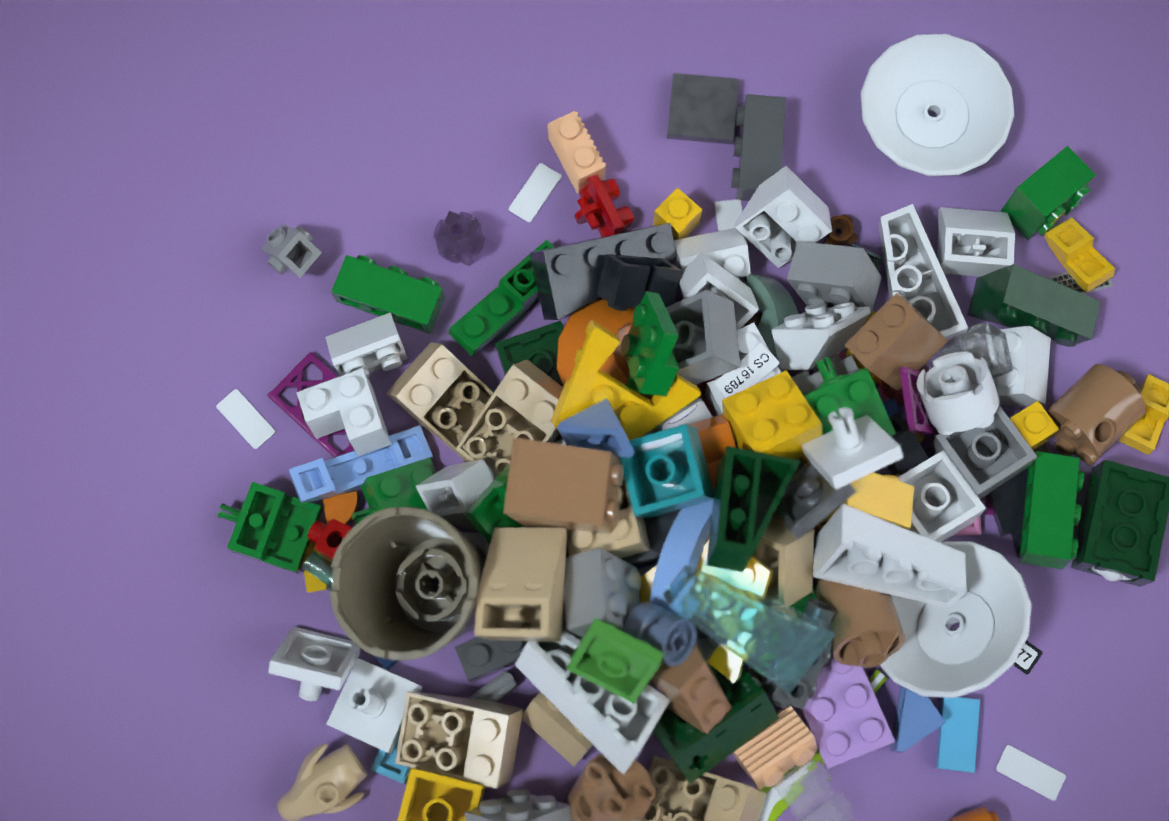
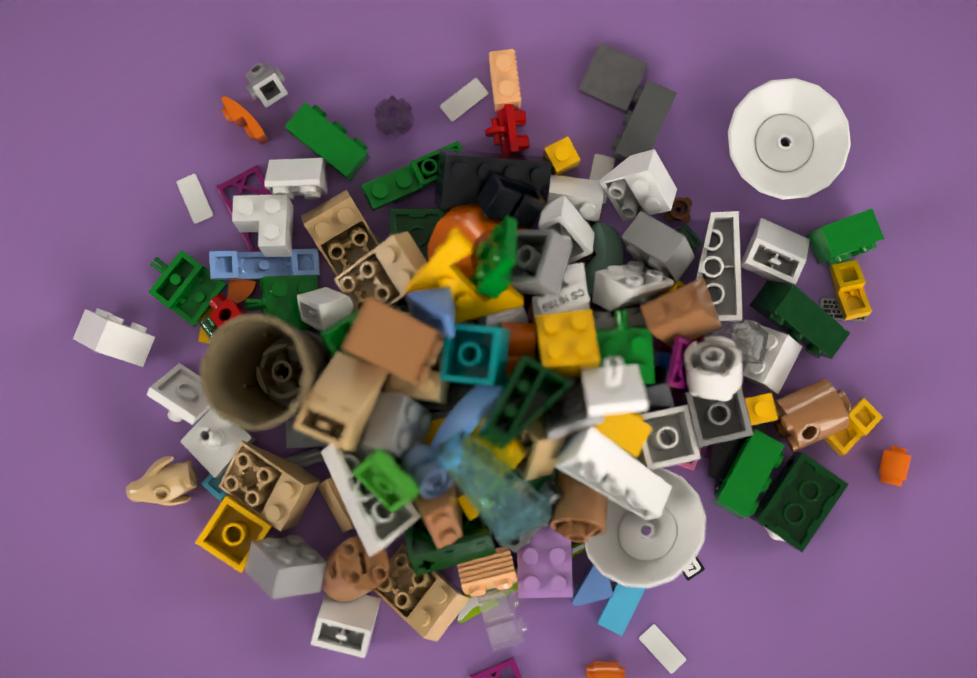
camera: 20 degrees right, 10 degrees up
(200, 618) = (109, 336): none -> white brick
(272, 299) = (240, 116): none -> orange slope

